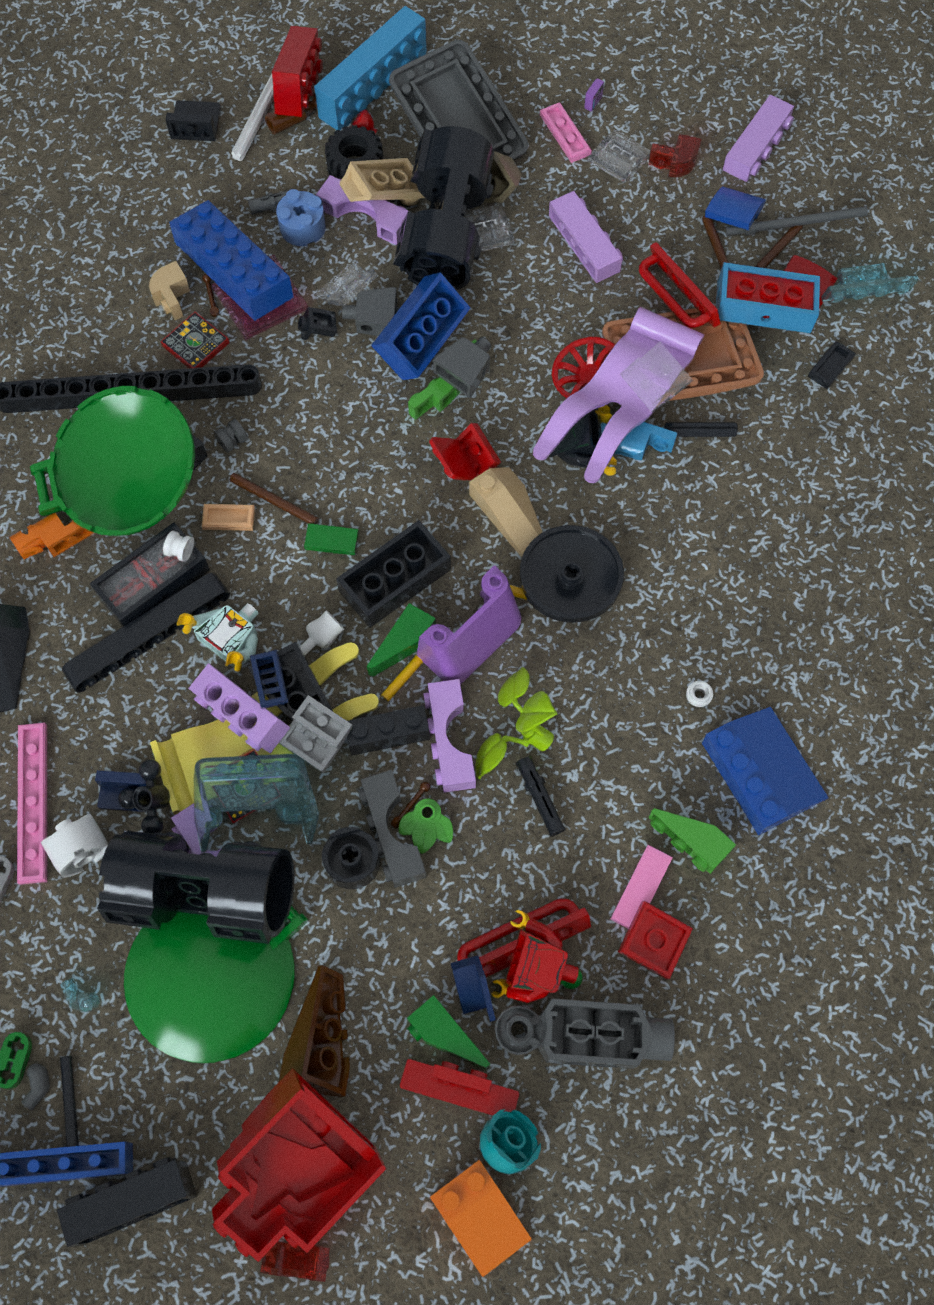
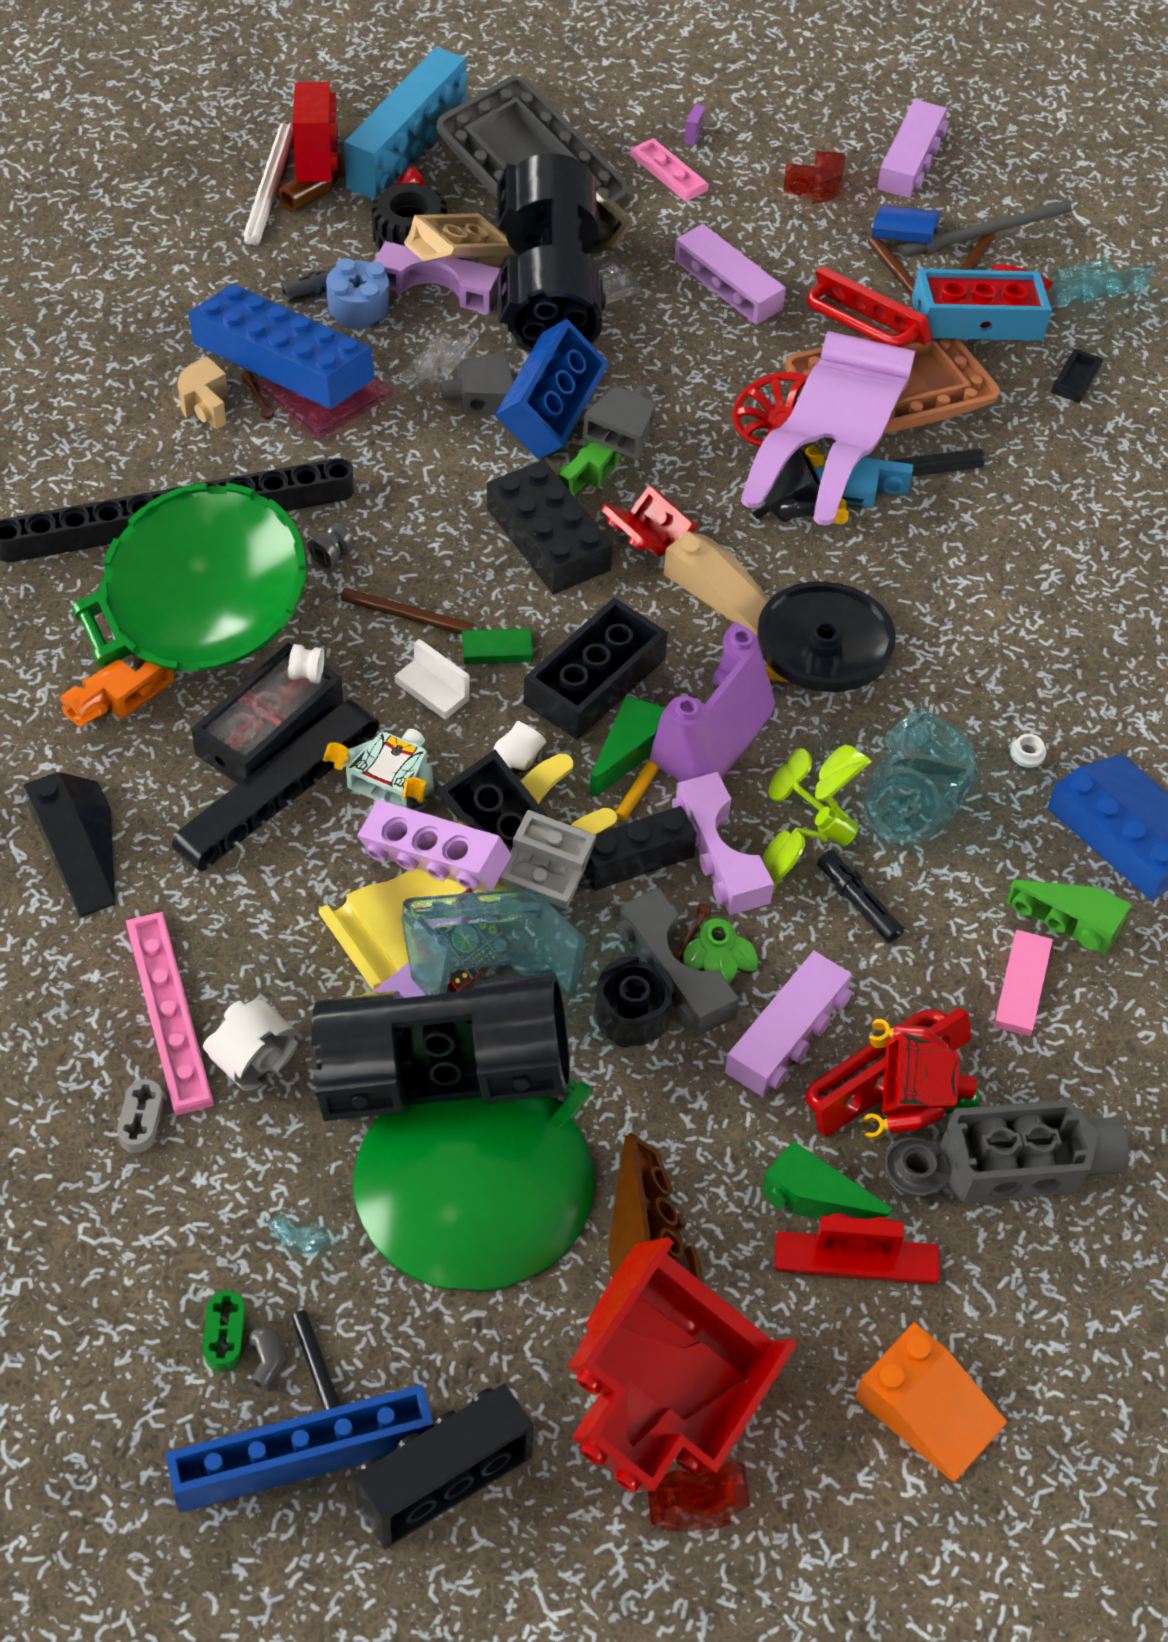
camera: 15 degrees left, 15 degrees down
(111, 784) = (297, 973): dark blue panel -> none
(147, 797) = (309, 979): black piece -> none
(194, 120) = (185, 206): black bracket -> none
(195, 341) = (251, 447): tile -> none
(228, 517) = (352, 639): light nougat tile -> none
(264, 659) = (473, 768): dark blue slope -> none
(277, 565) = (434, 681): none -> white panel
(317, 322) = (412, 405): black bracket -> none
(391, 444) = (549, 526): none -> black brick
(459, 894) = (788, 1024): none -> lavender brick
(472, 986) = (844, 1122): dark blue panel -> none
(509, 1142) = (944, 1300): teal cylinder -> none
(609, 712) = (920, 780): none -> clear light blue piece
(619, 156) = (745, 186): clear slope -> none
(655, 940) = (1060, 1036): red tile -> none
(656, 377) = (874, 397): clear slope -> none

